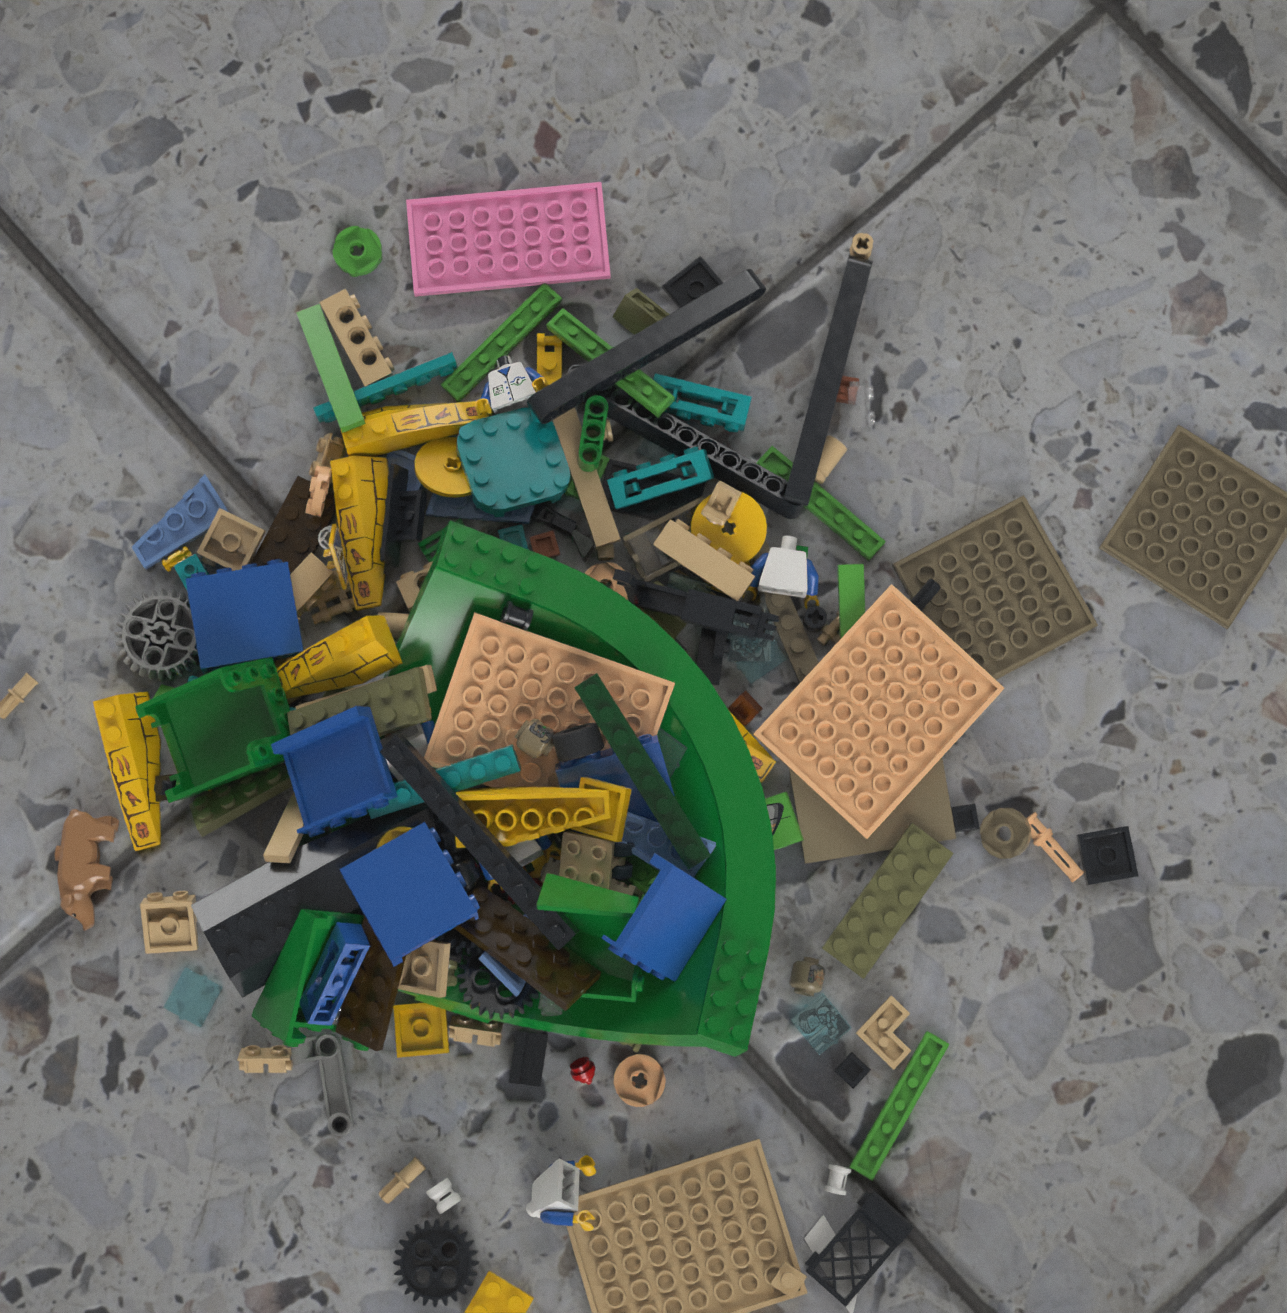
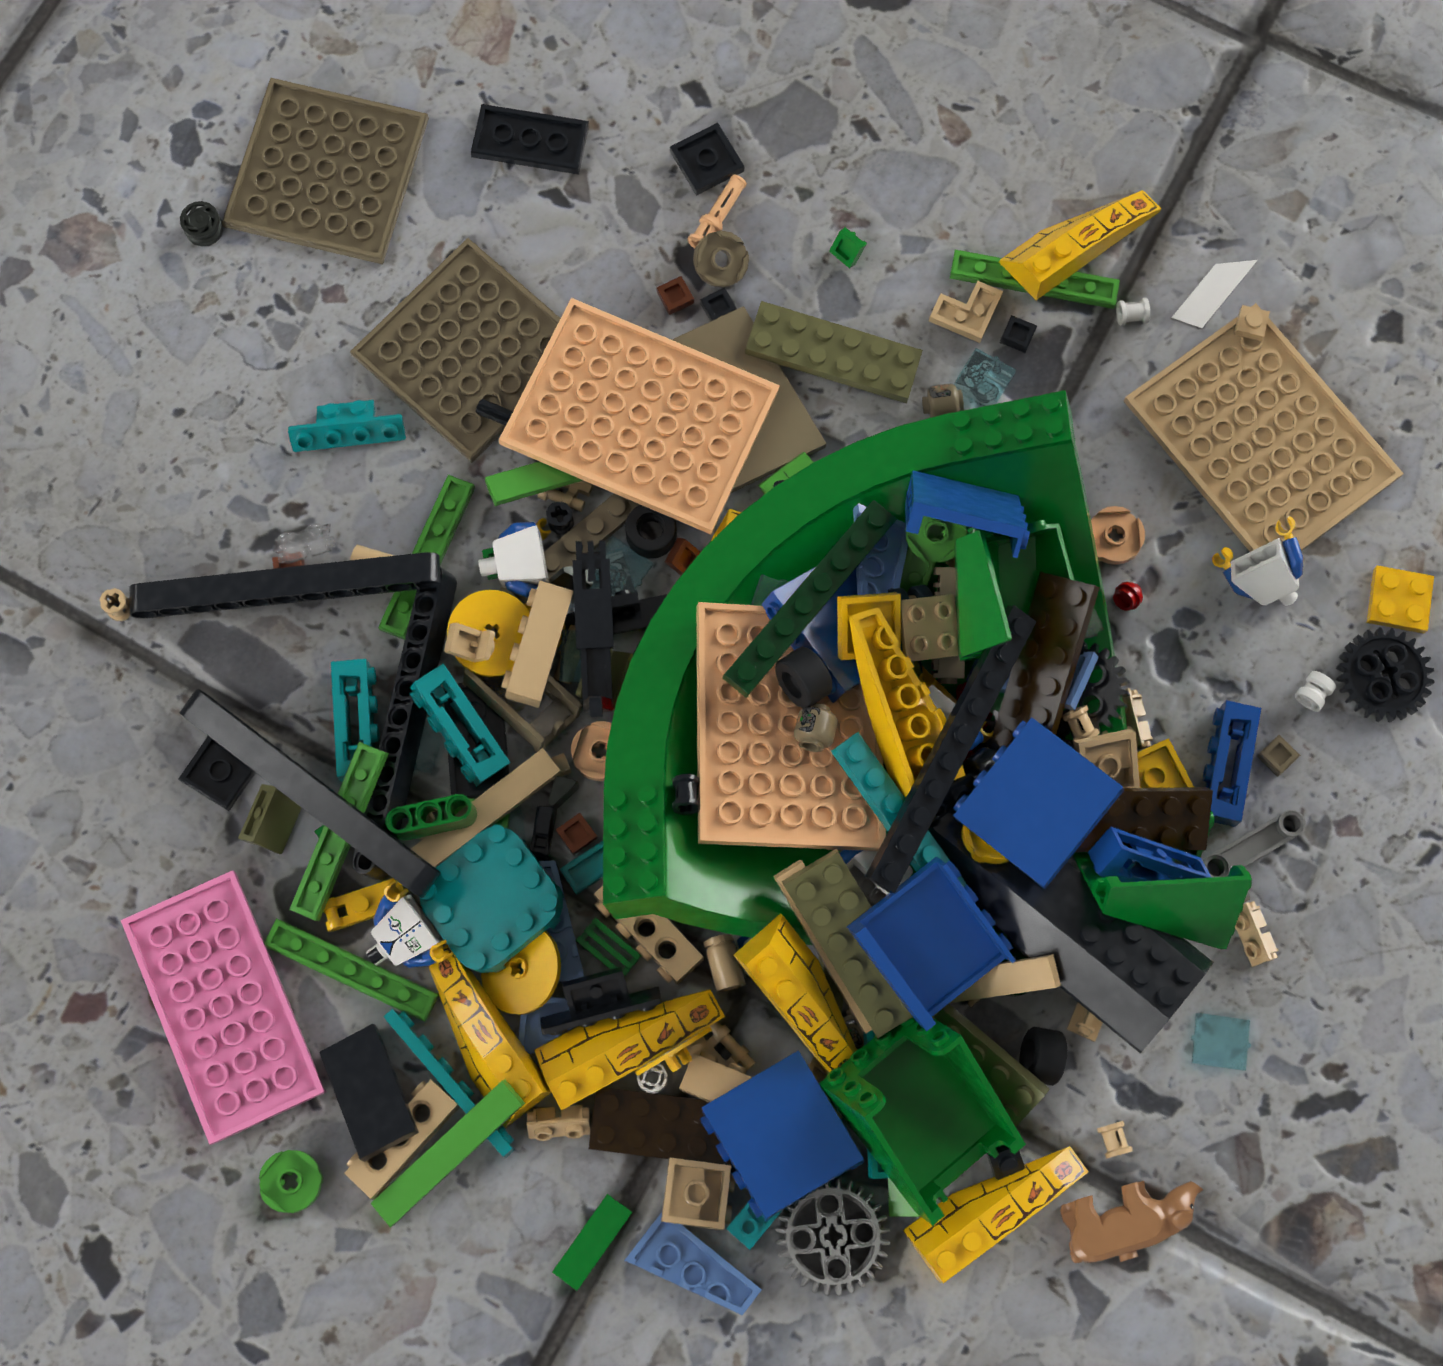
camera: 110 degrees left, 5 degrees down
(149, 879) = (1114, 1139): none -> tan bush
(169, 923) = (1153, 1096): tan plate -> none
(176, 558) = (736, 1256): yellow piece -> none
(228, 456) = (592, 1242): none -> green tile
(233, 847) = (1044, 1054): none -> black tyre
(319, 489) = (603, 1106): light nougat plate -> none
(399, 324) = (368, 1092): none -> black tile
(401, 1180) = (1317, 741): tan axle -> none
(403, 1142) = (1278, 755): none -> dark tan tile
(427, 1092) = (1237, 716): none -> blue brick
(466, 961) = (1081, 714): none -> tan bush
(528, 1058) = (1143, 656): black panel -> none
(770, 675) = (655, 547): none -> black tyre
(880, 1219) = (1154, 260): black piece -> none
(921, 1155) = (1072, 244): none -> yellow wedge
(957, 473) = (346, 426): none -> teal bracket
(981, 948) = (847, 247): none -> green tile
(985, 783) = (675, 295): none -> copper plate
(1177, 709) = (530, 139): none -> black tile
(1182, 407) = (202, 224): none -> pearl dark grey wheel

